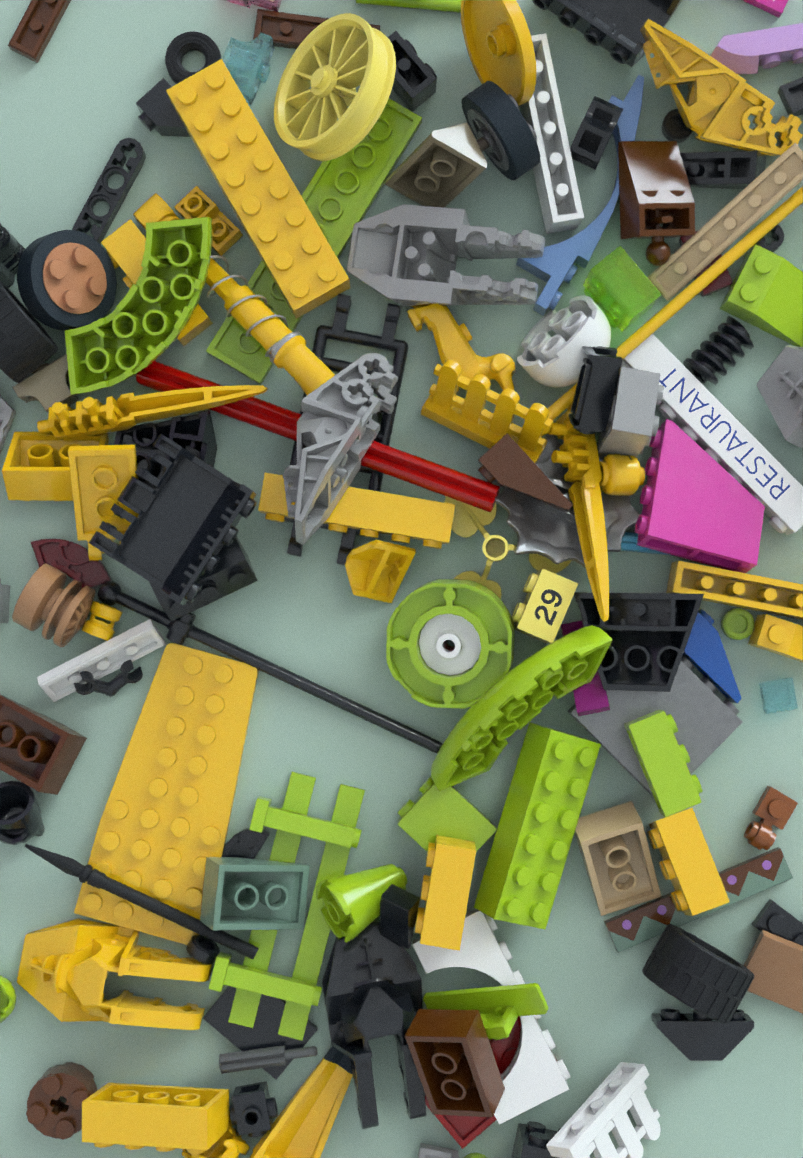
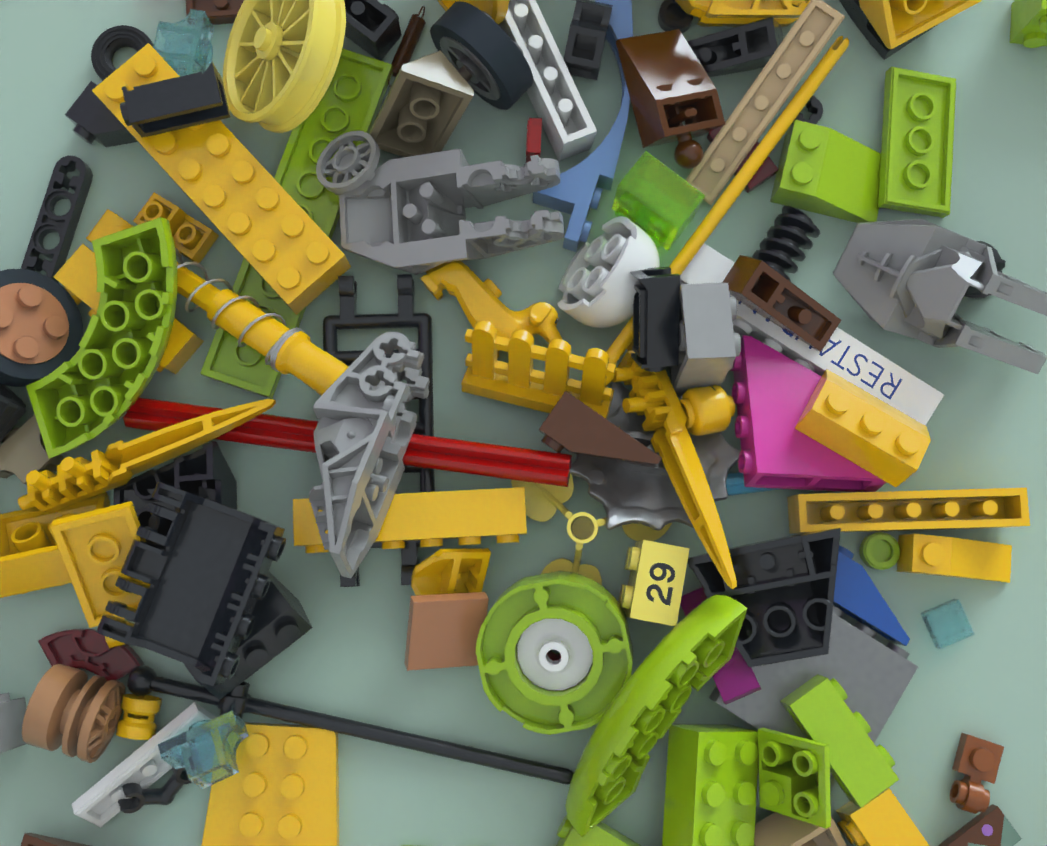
camera: 15 degrees left, 5 degrees down
(154, 657) = (207, 749): none -> clear light blue brick
(236, 120) = (175, 103): none -> black window
(364, 606) = (444, 630): none -> nougat tile
(367, 198) = (348, 162): none -> light grey wheel
(438, 102) = (408, 42): none -> reddish brown piece
(529, 212) = (534, 131): none -> red tile
(618, 781) = (794, 777): none -> lime slope
(703, 398) = (780, 301): none -> reddish brown slope
(745, 518) = (864, 429): none -> yellow slope

